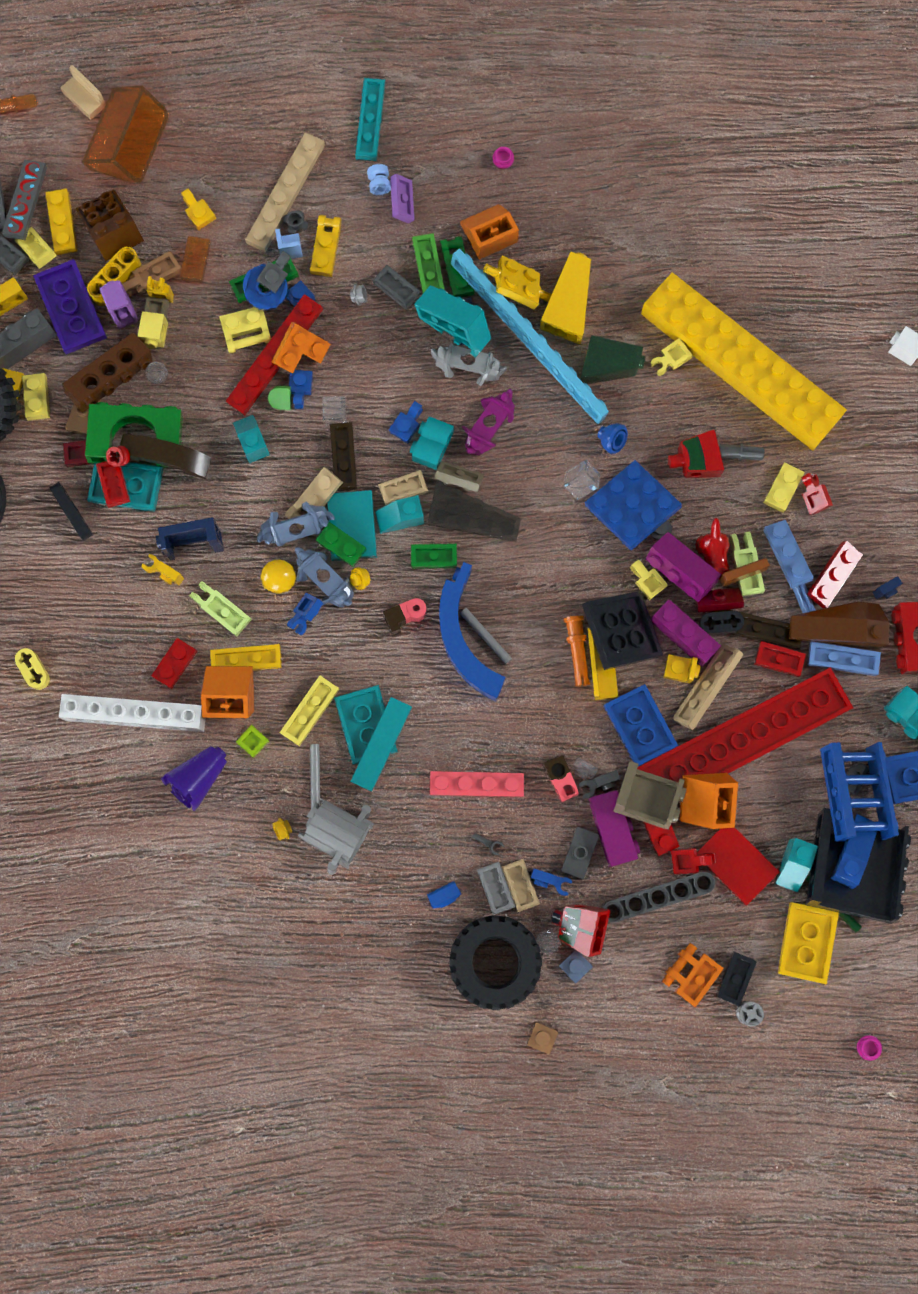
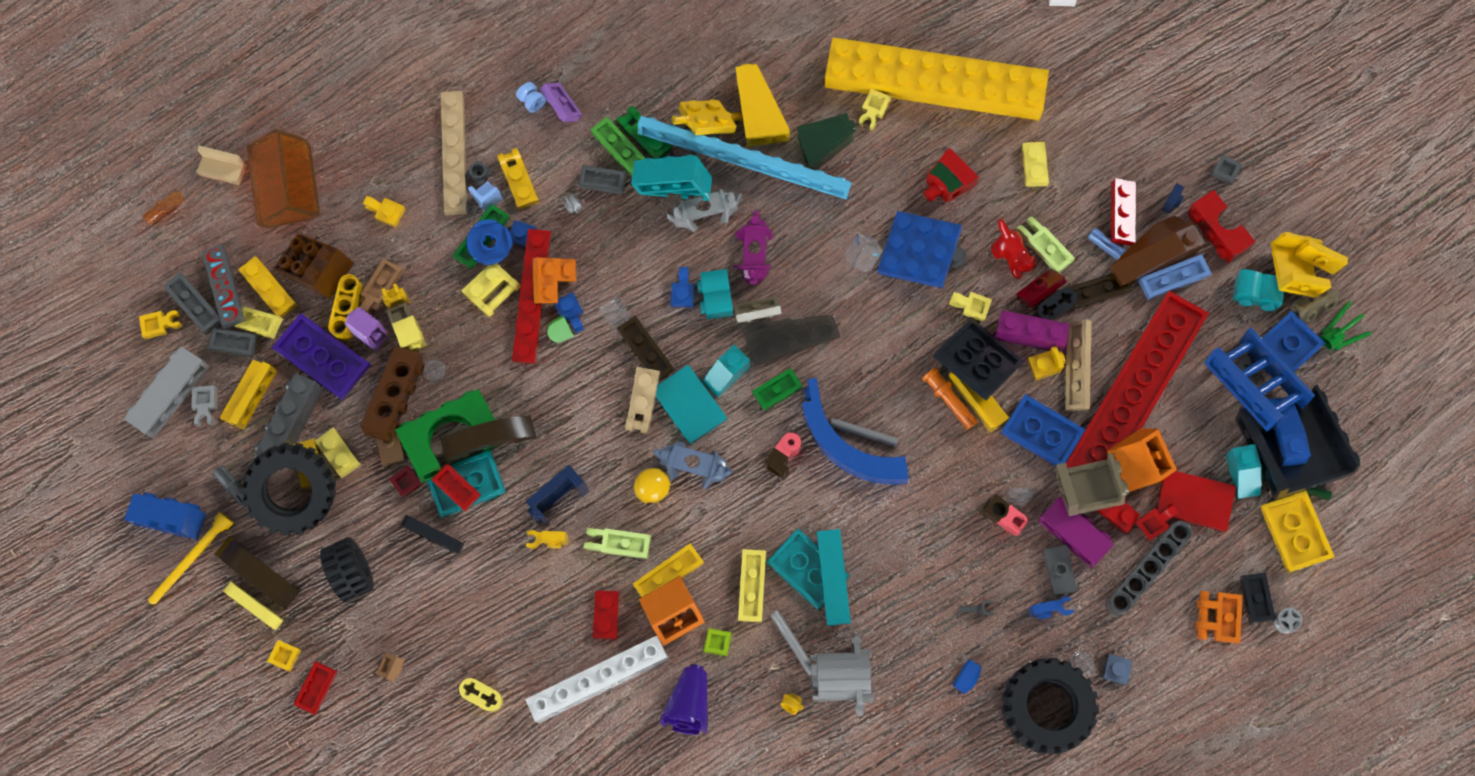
camera: 25 degrees left, 5 degrees down
(124, 456) = (442, 462): red bush -> none
(195, 259) = (409, 253): clear orange plate -> none
(251, 438) = (554, 379): teal slope -> none
(273, 275) = (492, 228): dark grey plate -> none
(279, 533) = (632, 446): sand blue piece -> none
(305, 610) = (695, 499): blue plate -> none
(341, 544) = (691, 425): green plate -> none
(360, 578) = (725, 445): yellow plate -> none
(370, 119) = (490, 51): teal tile -> none
(403, 487) = (714, 346): tan plate -> none
(476, 784) = (935, 563): coral plate -> none
(490, 230) = (654, 87): orange slope -> none
(496, 888) = (1008, 643): light grey plate -> none
(503, 157) = (626, 21): dark pink plate -> none
(520, 885) = (1027, 628): tan plate -> none
(542, 1038) = (1128, 748): medium nougat plate -> none
(582, 927) = (1104, 631): red torso -> none
(605, 781) = (1043, 496): dark grey plate -> none
(613, 437) = (867, 202): blue brick -> none
(683, 567) = (995, 277): magenta brick -> none
(741, 452) = (983, 153): dark grey axle -> none
(744, 572) = (1049, 251): dark orange tile -> none
(779, 659) = (1122, 308): red plate -> none
(788, 554) = (1074, 216): medium blue plate -> none
(817, 496) = (1067, 156): plate -> none
(869, 1047) = (1402, 589): dark pink plate -> none

